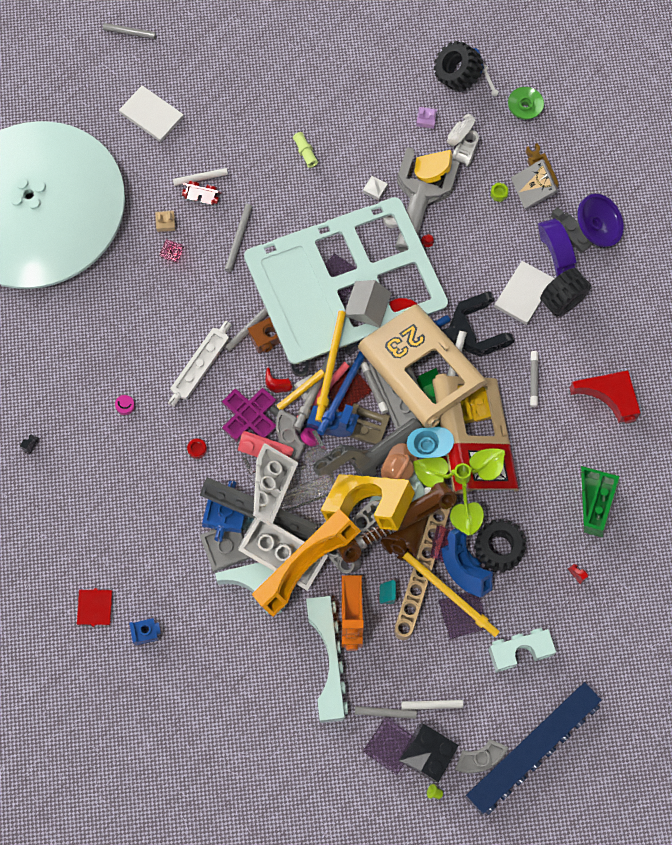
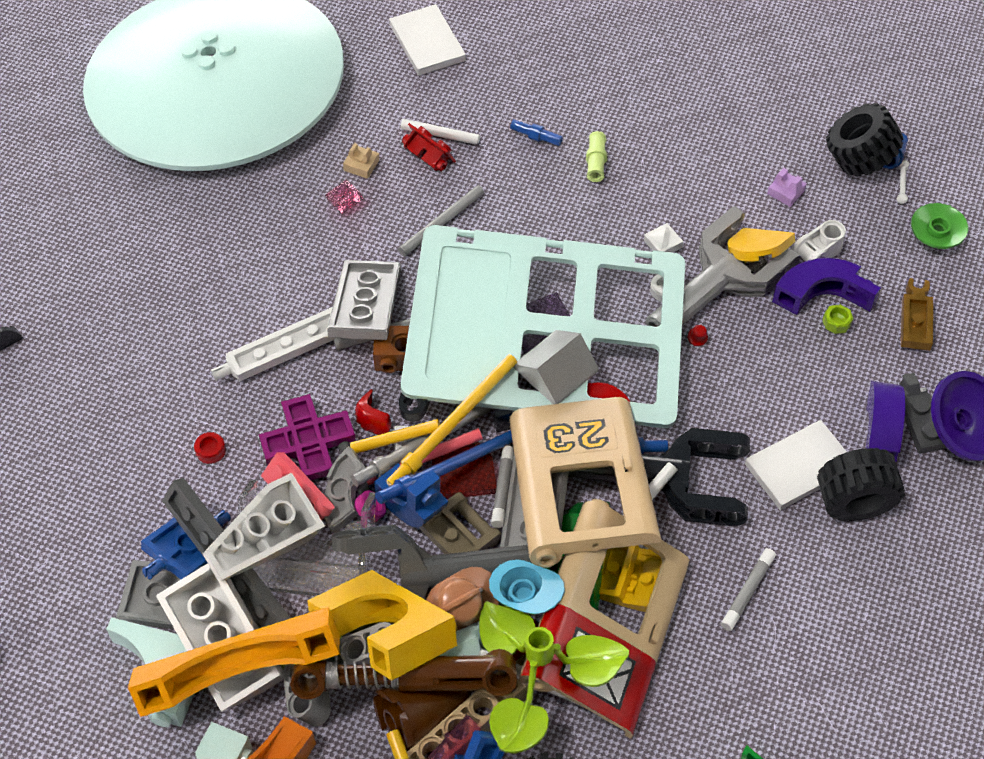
camera: 30 degrees right, 15 degrees down
(124, 405) = (156, 349): dark pink tile -> none
(230, 314) = (364, 300): none -> light grey tile
(259, 149) = (536, 132): none -> blue bar
(460, 130) = (824, 214): white tile -> none
(479, 168) = (824, 277): none -> dark purple arch
(534, 184) = (894, 329): light grey tile -> none
(614, 390) = (864, 662): red arch -> none

